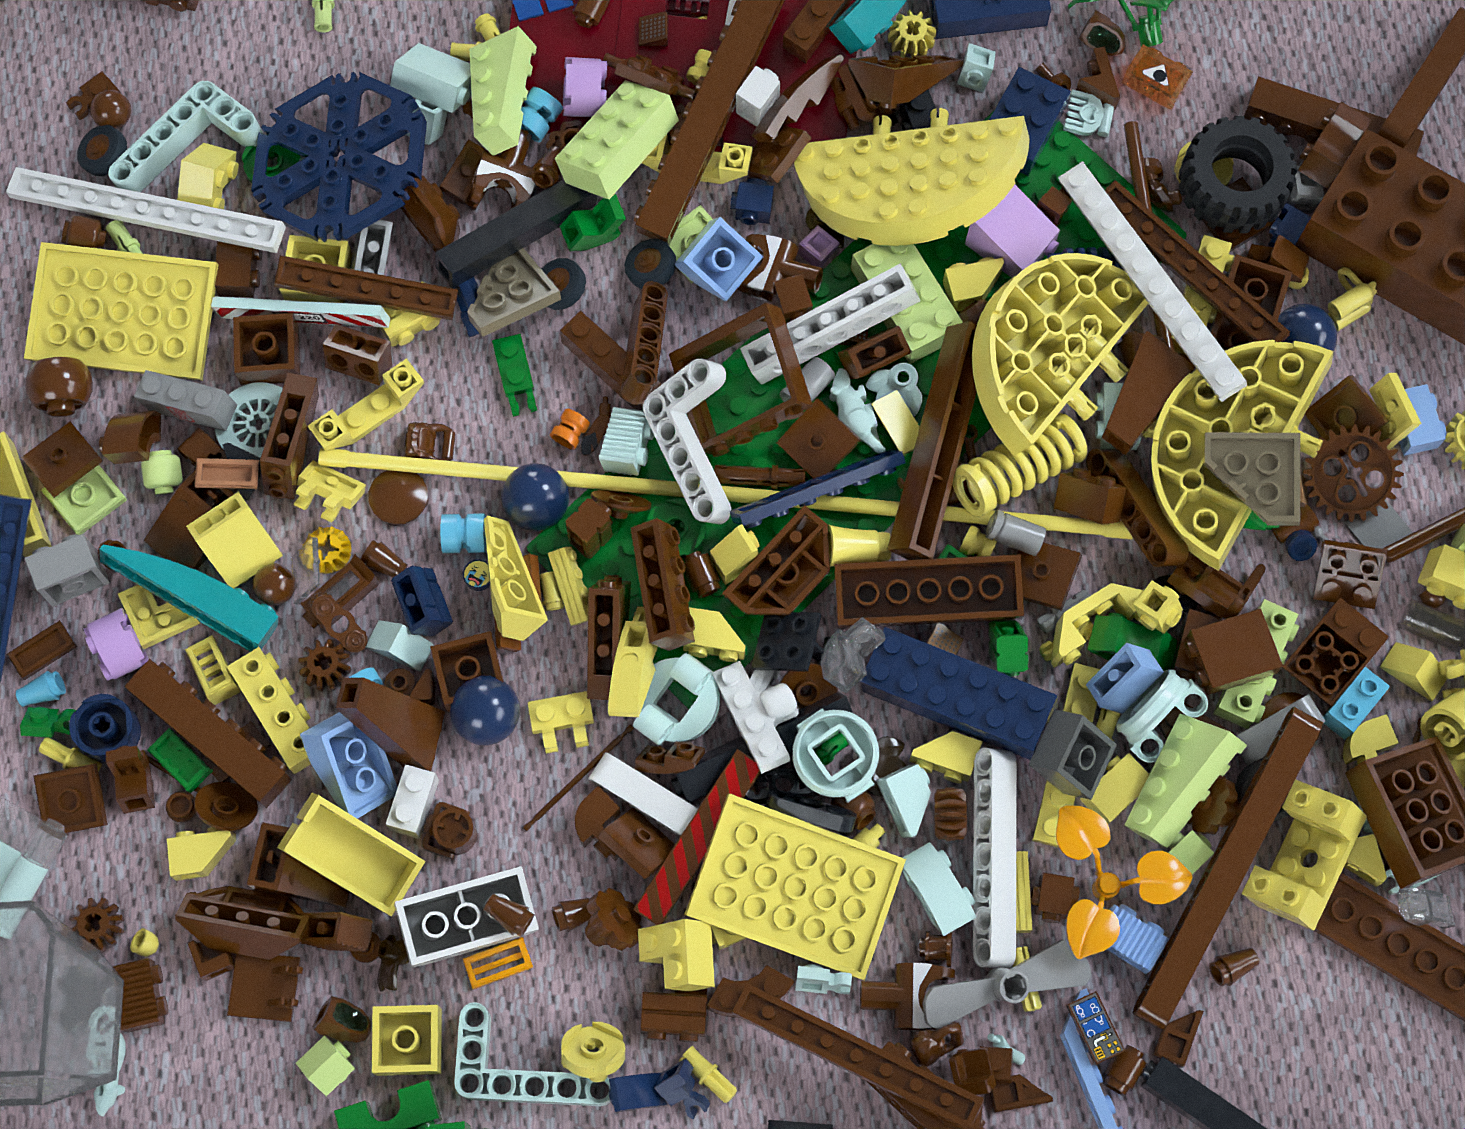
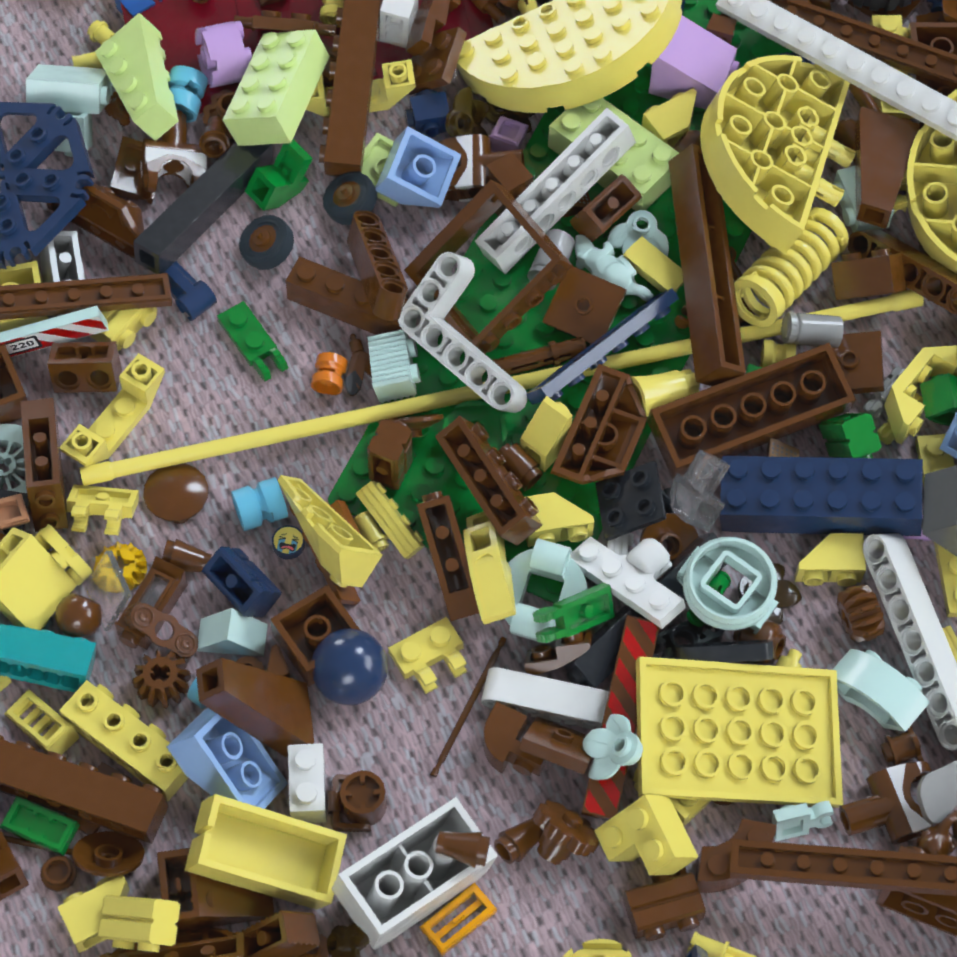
camera: 20 degrees left, 10 degrees down
(225, 878) = (139, 920): none -> light yellow brick
(278, 525) = (64, 554): none -> light yellow plate
(421, 441) = (179, 428): reddish brown piece -> none
(511, 293) = (222, 261): dark tan plate -> none
(535, 497) = (319, 447): dark blue piece -> none
(677, 864) = (612, 747): none -> light aqua plate
(693, 732) = (576, 613): none -> green hinge
(787, 216) = (466, 115): none -> dark brown plate
(906, 797) = (810, 613): light aqua slope -> none

